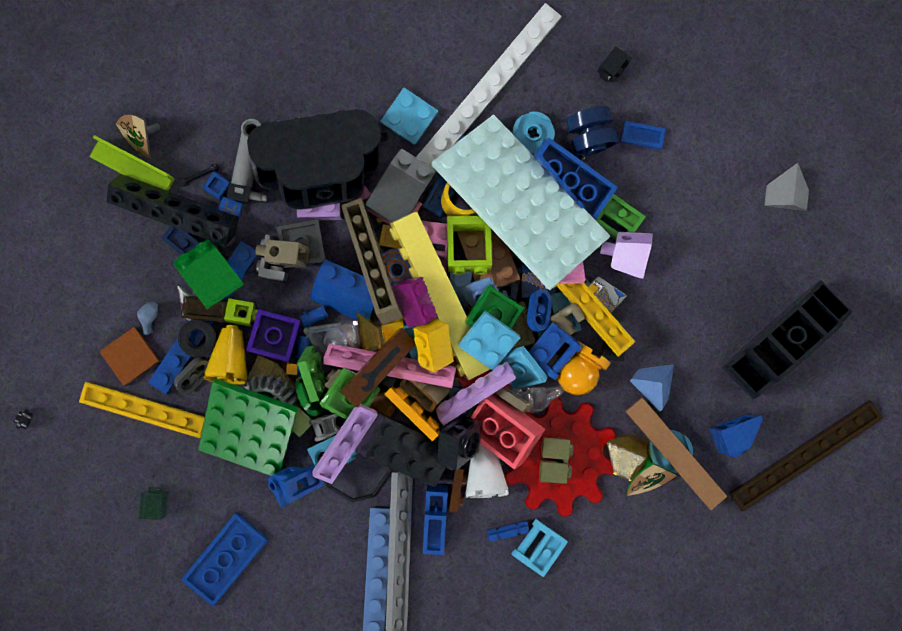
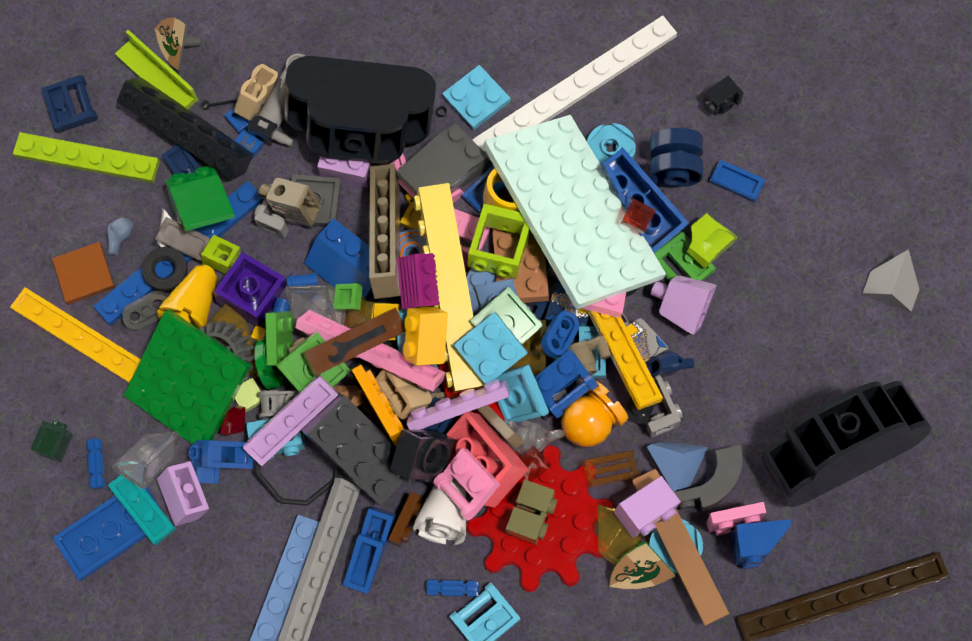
camera: 25 degrees right, 15 degrees down
(60, 216) = (62, 107): none -> dark blue plate
(96, 255) = (86, 157): none -> lime plate
(194, 511) = (95, 464): none -> blue axle
(223, 163) = (255, 91): none -> tan brick
(235, 498) = (147, 458): none -> clear slope
(244, 537) = (142, 509): none -> teal tile
(274, 519) = (182, 493): none -> lavender brick
(295, 448) = (234, 421): none -> dark red tile
(358, 326) = (347, 297): none -> bright green plate
(505, 451) = (472, 477): none -> bright pink plate
(546, 419) = (535, 463): none -> clear red plate
(577, 194) = (638, 216): none -> clear red plate
(619, 395) = (608, 459): none -> clear orange tile
(628, 308) = (668, 364): none -> dark blue piece
(635, 357) = (661, 423): none -> light grey bracket
(636, 195) = (709, 240): none -> lime slope
(647, 435) = (647, 507): none -> lavender brick
(693, 395) = (727, 471): none -> dark grey arch
(708, 424) = (724, 520): none -> bright pink plate

